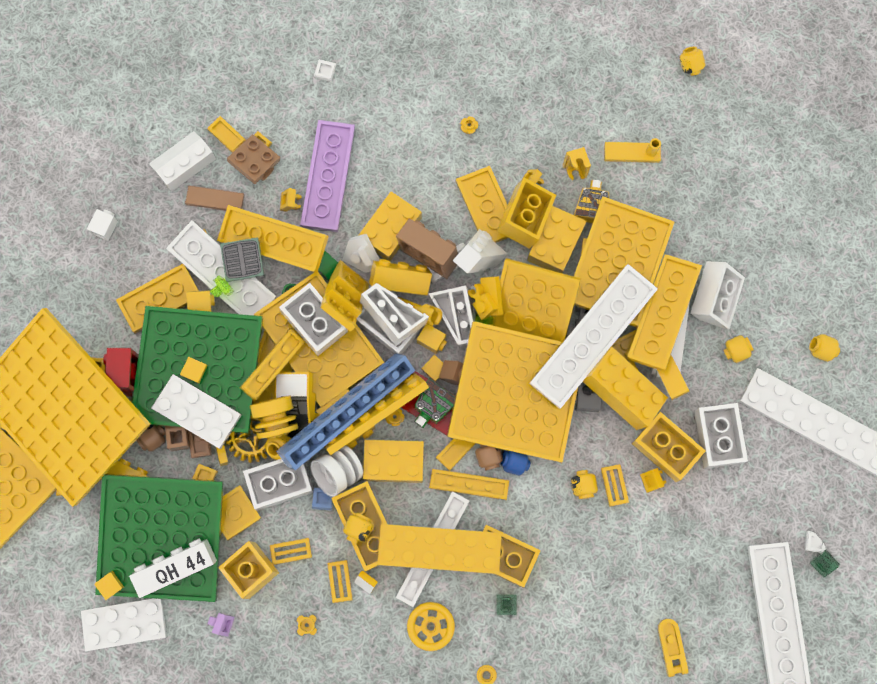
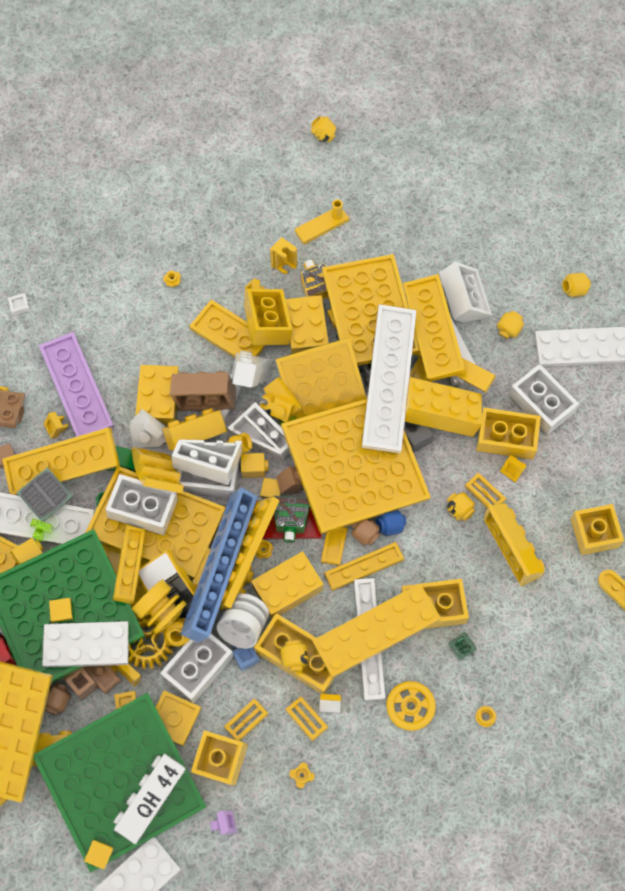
camera: 30 degrees left, 10 degrees down
(607, 546) = (513, 543): none -> yellow slope
(687, 580) = (597, 529): none -> yellow brick

